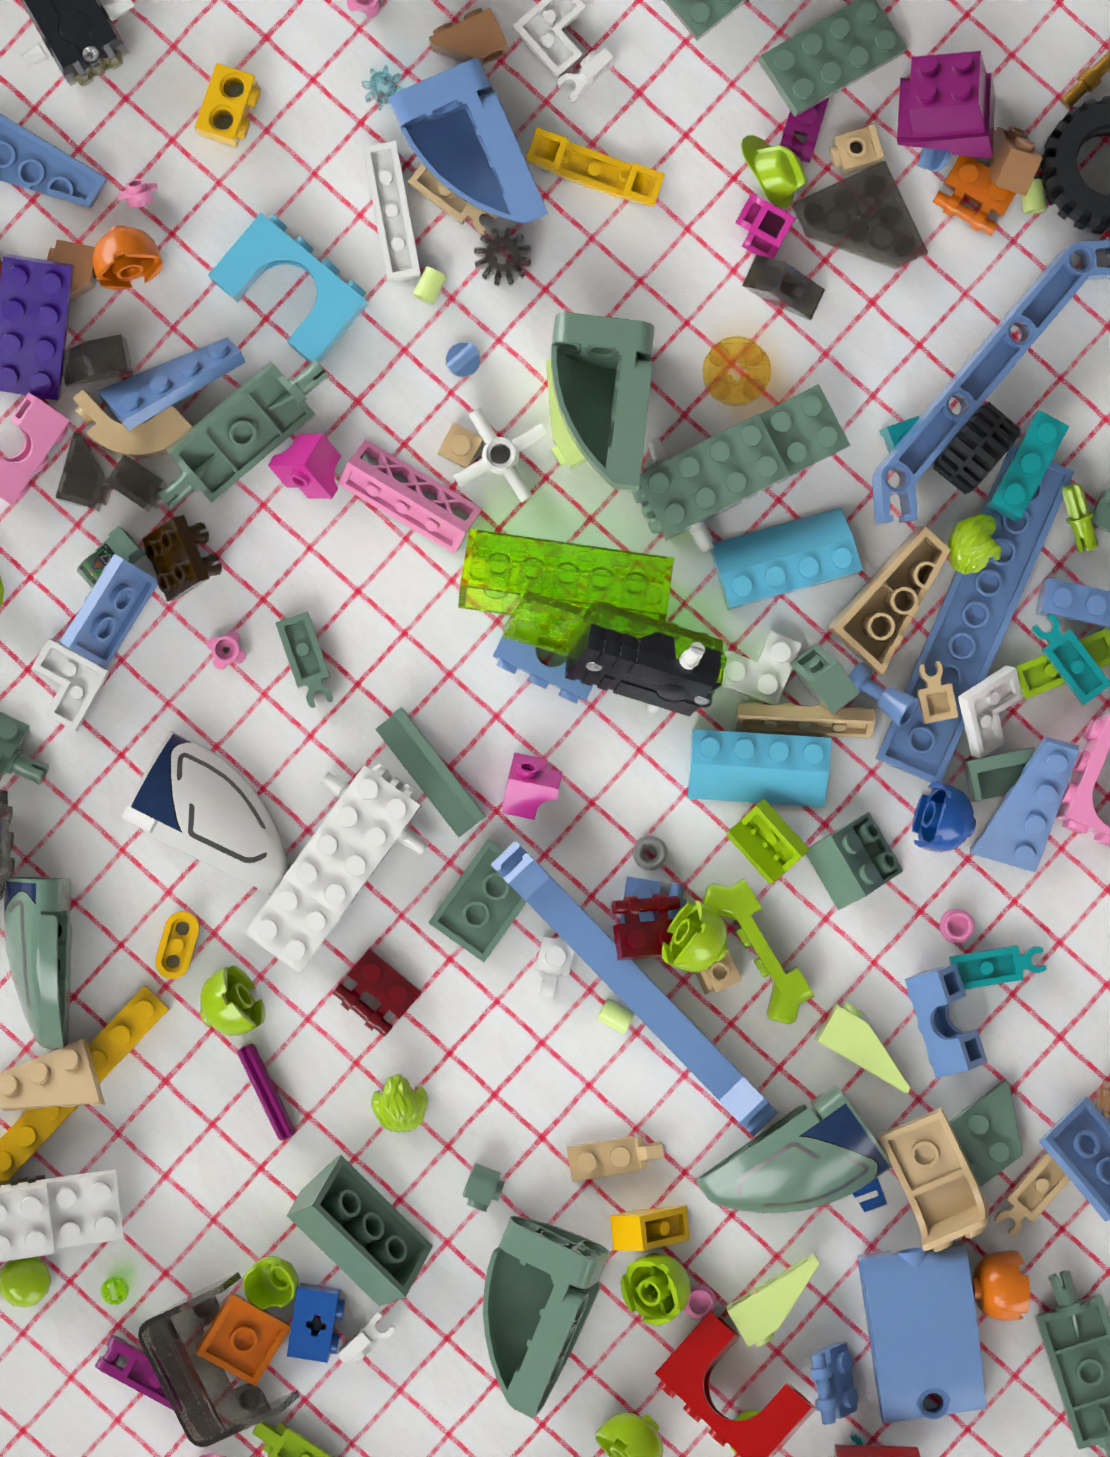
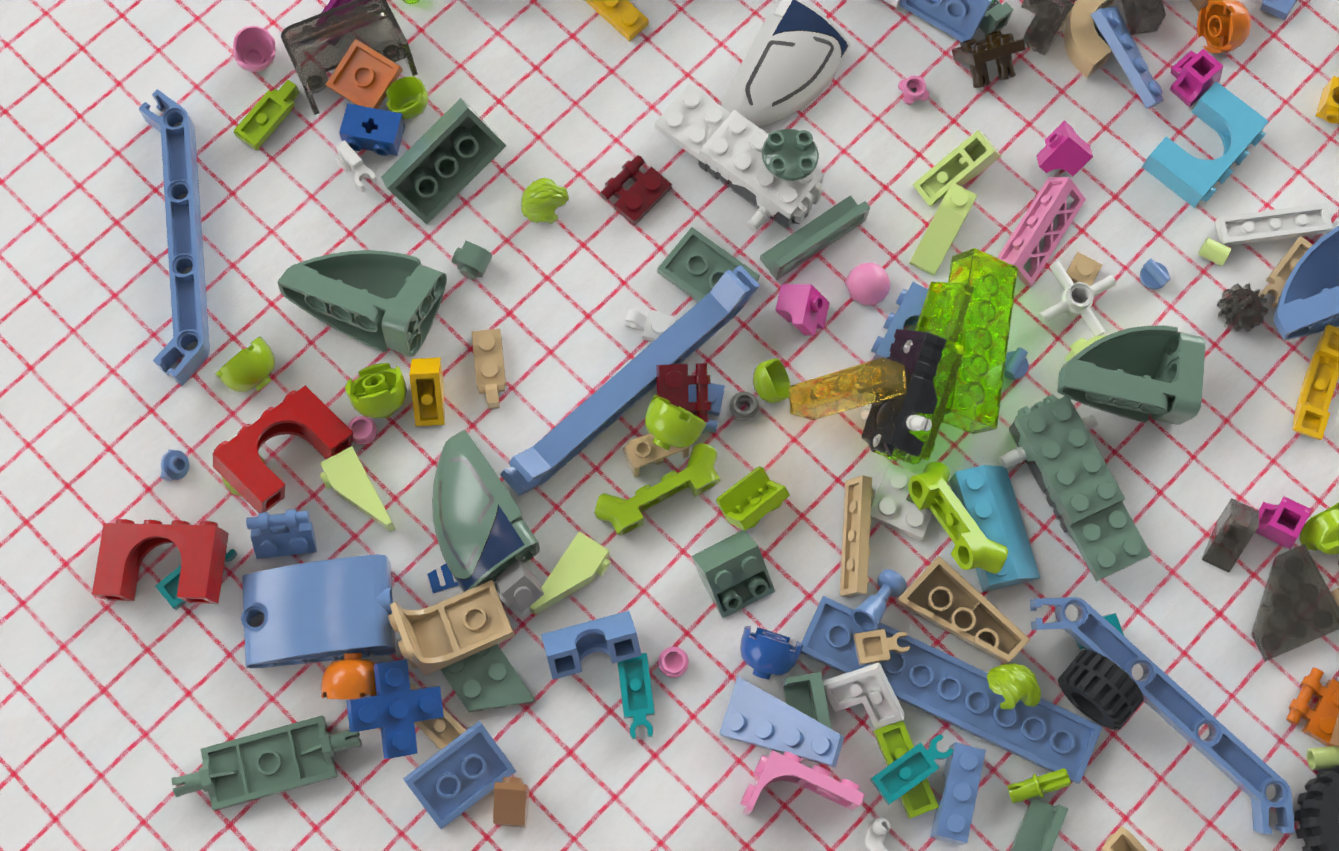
camera: 85 degrees right, 15 degrees down
(138, 193) = (1275, 39): bright pink plate -> none
(177, 944) = (681, 43): yellow plate -> none
(196, 298) = (1195, 76): none -> dark pink brick
(229, 1004) = (634, 77): lime cylinder -> none
(241, 432) = (1090, 102): sand green plate -> none
(266, 1092) = (559, 105): magenta axle -> none
(305, 655) = (909, 146): sand green plate -> none
(334, 597) = (957, 167): none -> yellowish green slope
(348, 808) = (790, 154): none -> sand green dish
(417, 616) = (943, 229): none -> yellowish green slope
(488, 706) = (868, 283): none -> bright pink hair
(585, 531) = (1016, 364): none -> medium blue plate
(615, 1016) = (607, 370): yellowish green hinge -> none
(622, 820) = (771, 381): none -> lime hair
(643, 735) = (847, 389): none -> clear yellow brick
(750, 357) = (1166, 481): clear yellow plate -> none
(758, 767) = (818, 496): medium azure slope -> none
(824, 678) = (894, 548): sand green panel -> none
(828, 592) = (971, 545): none -> lime plate
(886, 1106) = (518, 586): none -> light grey brick
(1027, 466) = (1103, 743): teal arch -> none
(1033, 1236) = (395, 709): none -> blue plate

